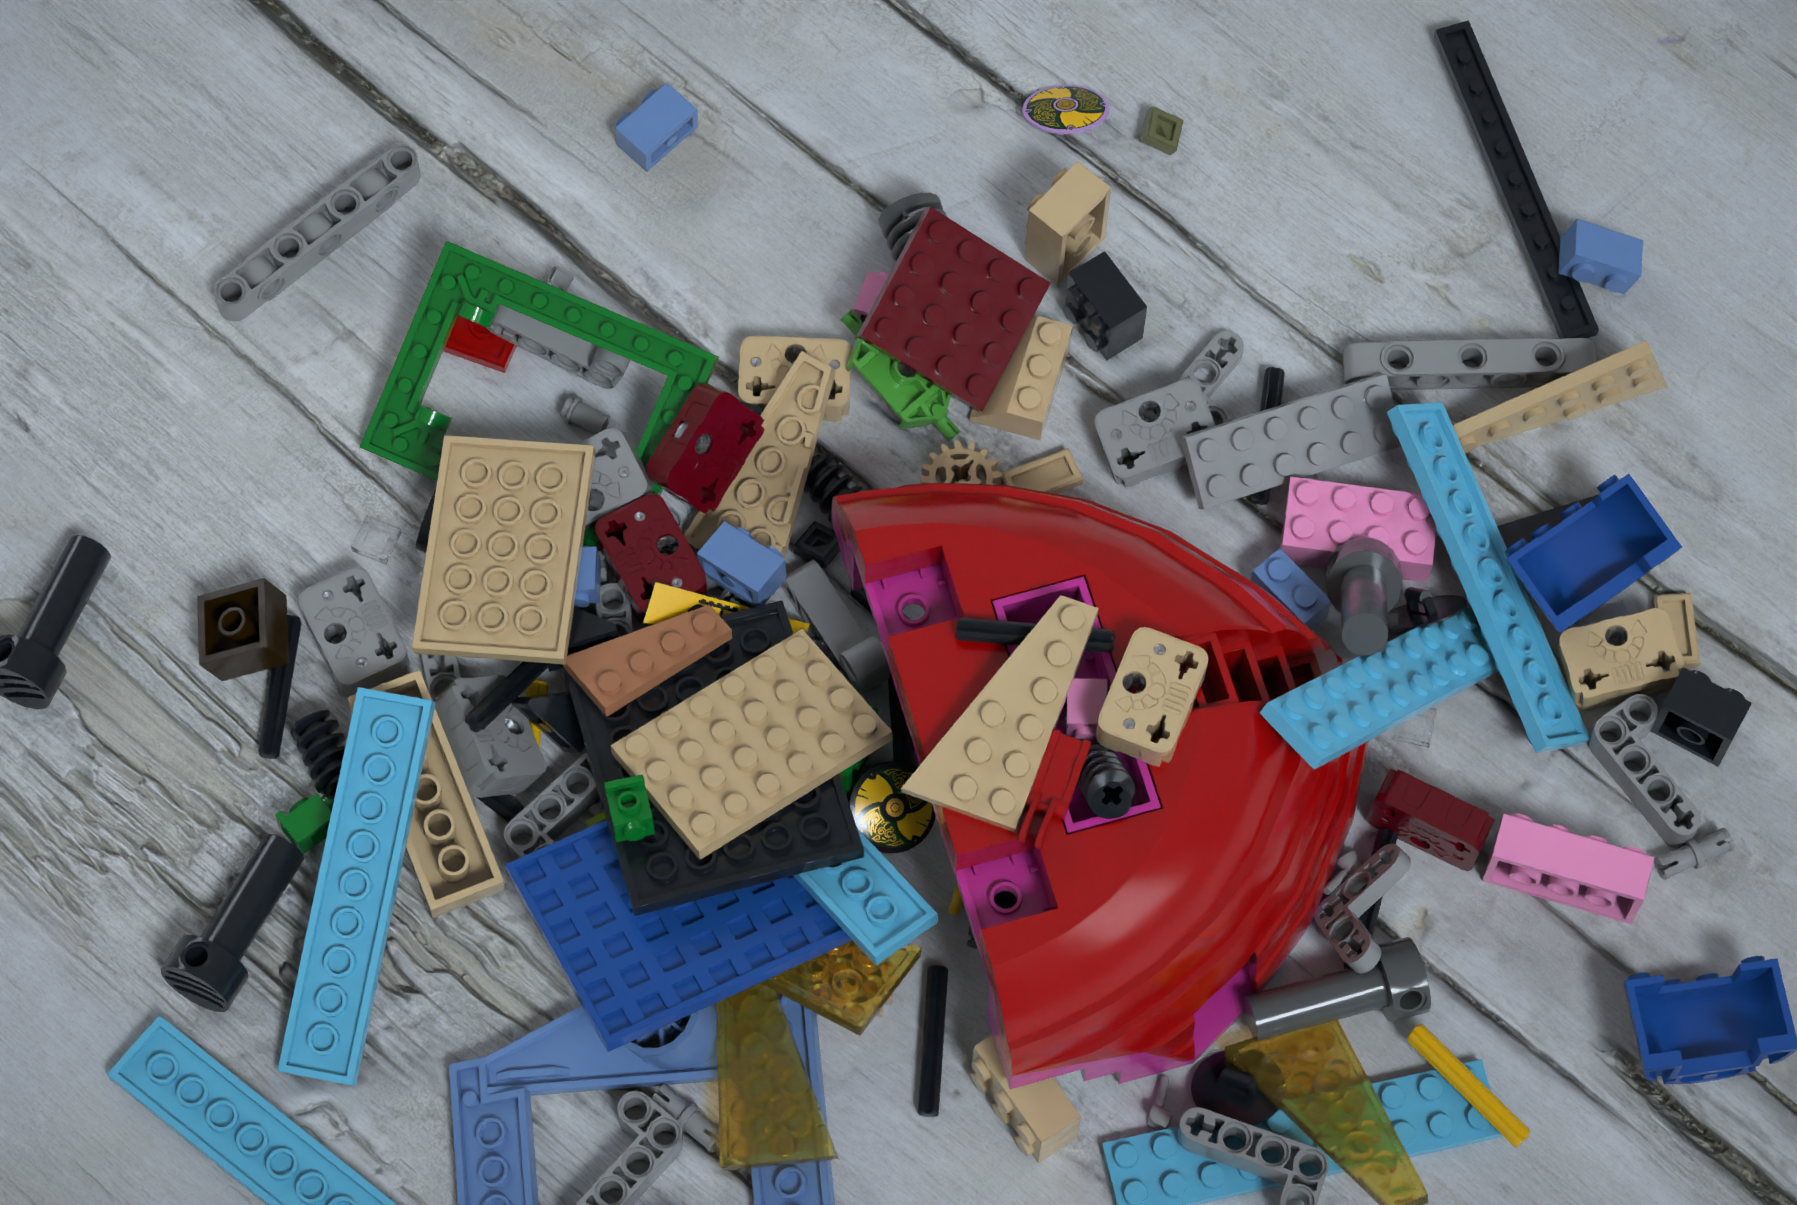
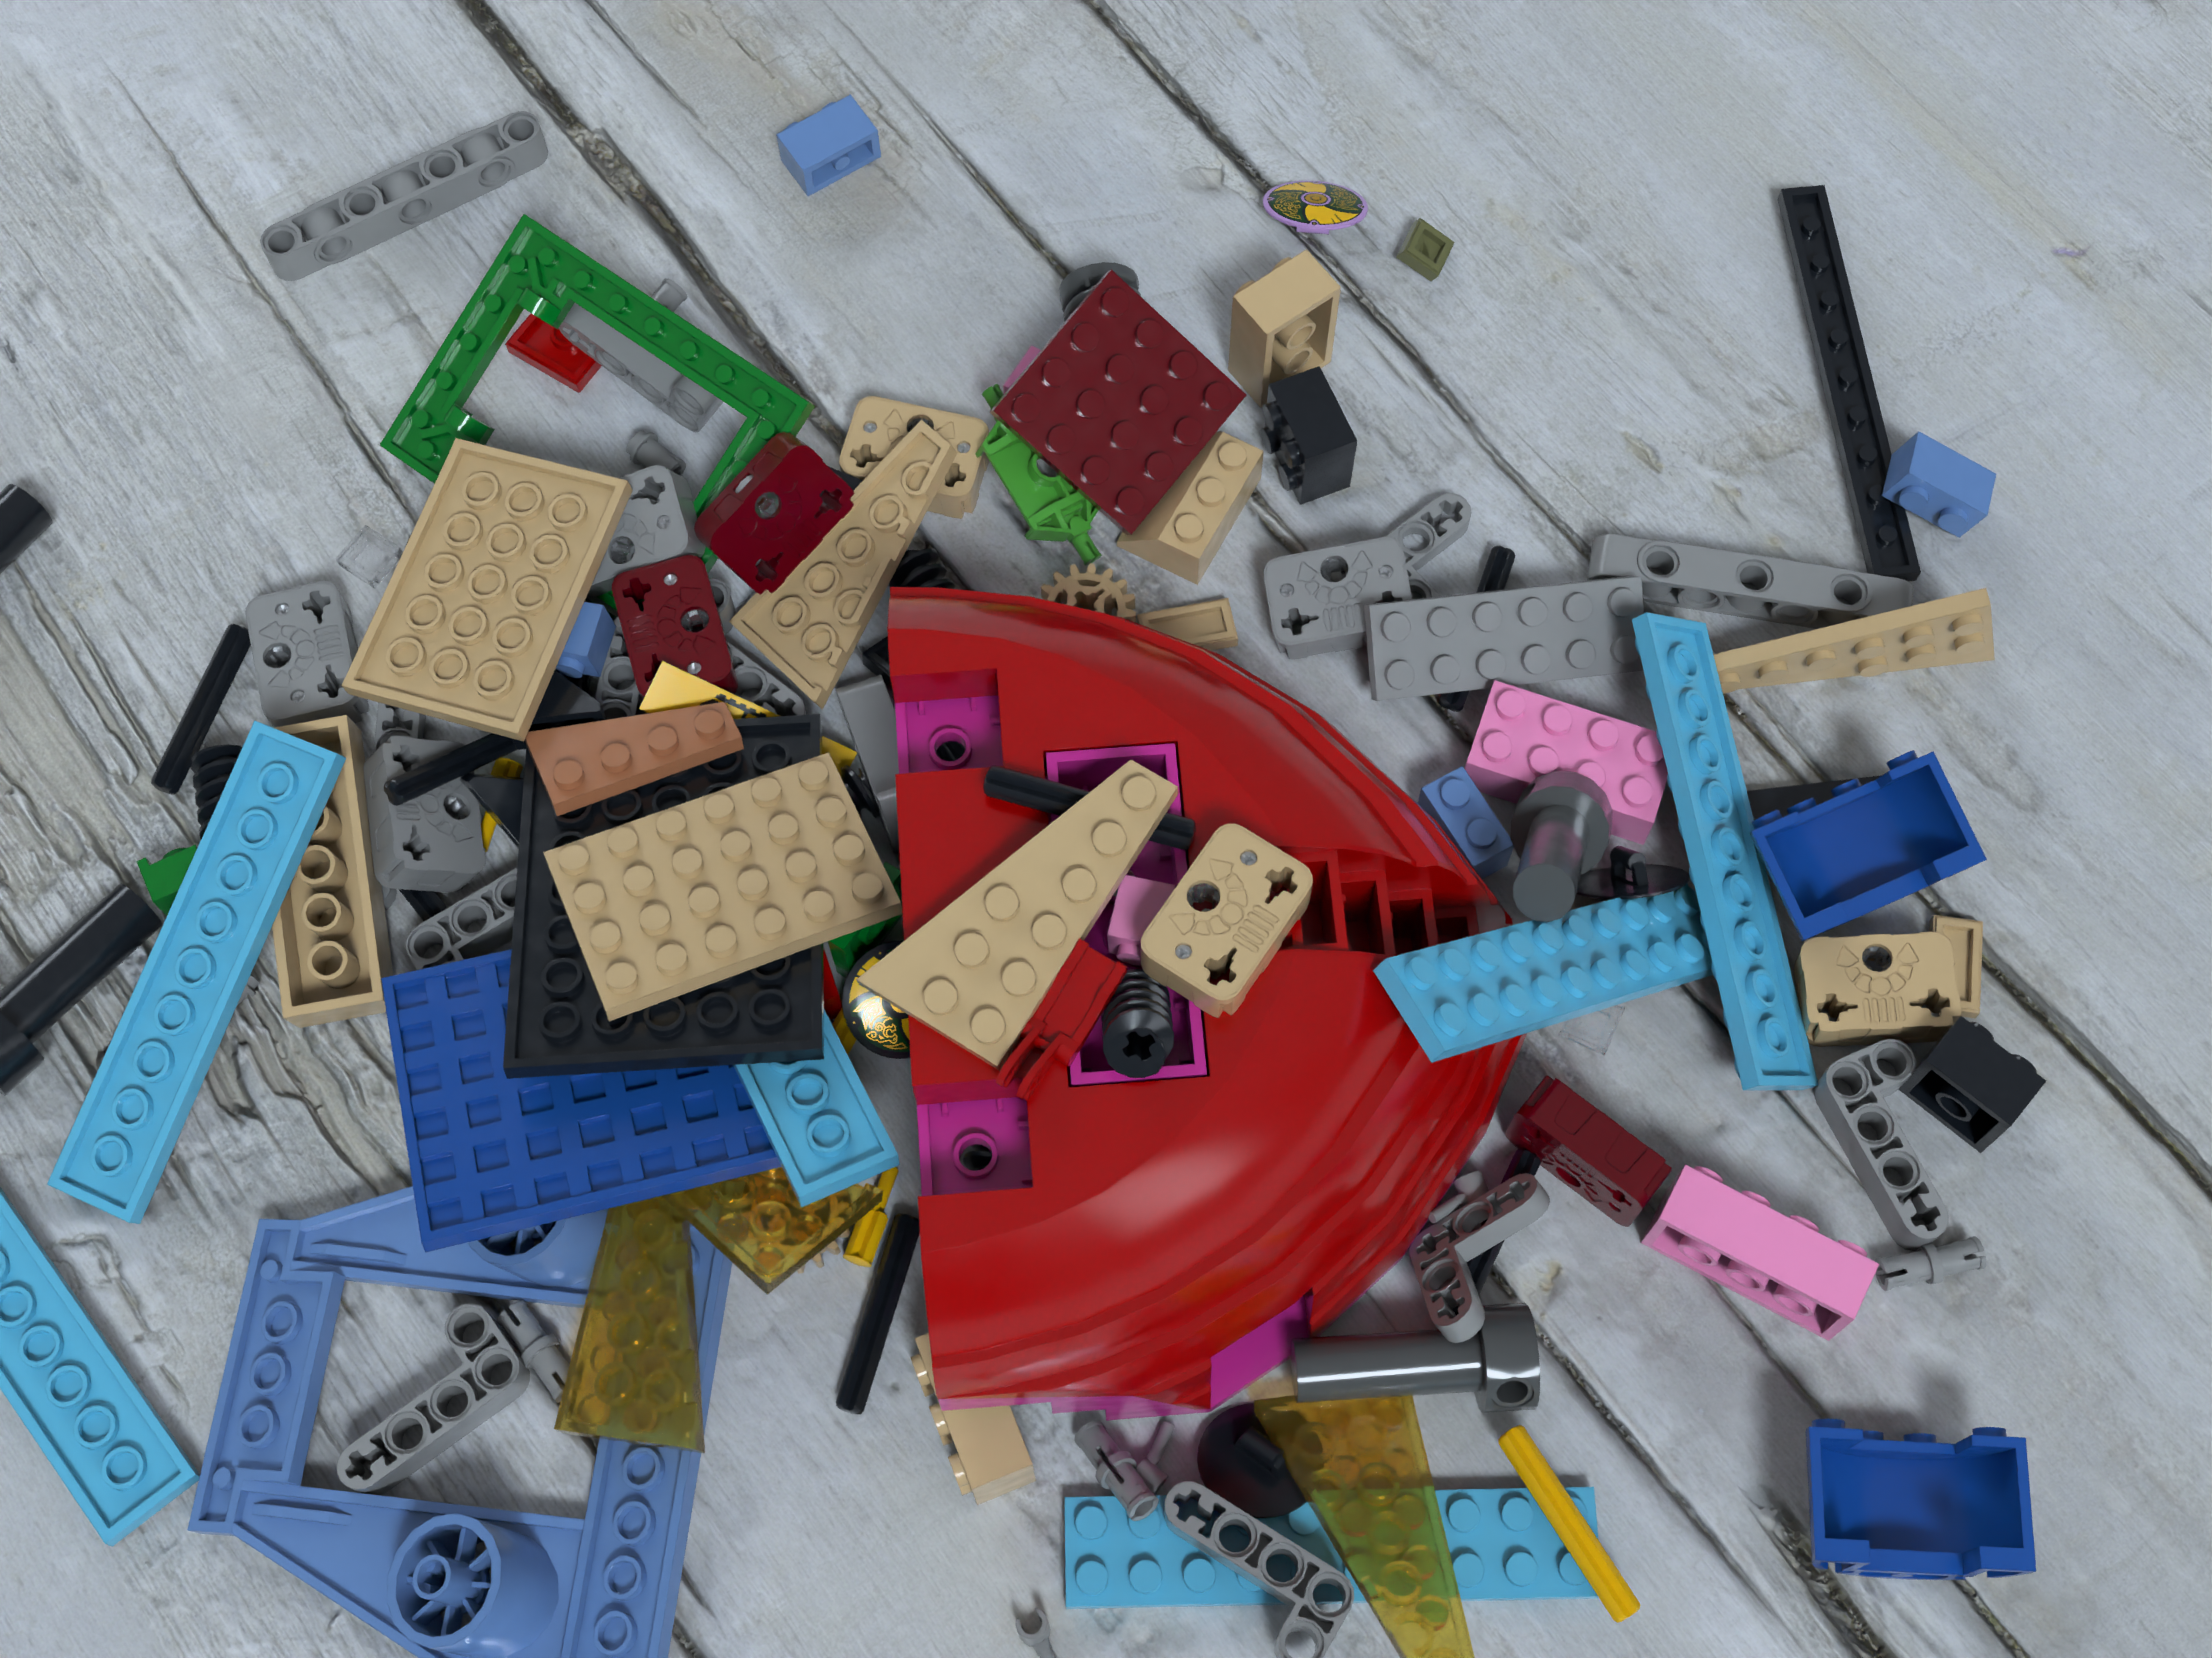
camera: 15 degrees right, 0 degrees up
(242, 629) = (169, 630): dark brown brick -> none
(629, 808) = (537, 937): green brick -> none
(742, 564) = (784, 661): medium blue brick -> none
(910, 986) = (871, 1226): none -> yellow axle
(1119, 1103) = (1131, 1492): none -> light grey pin

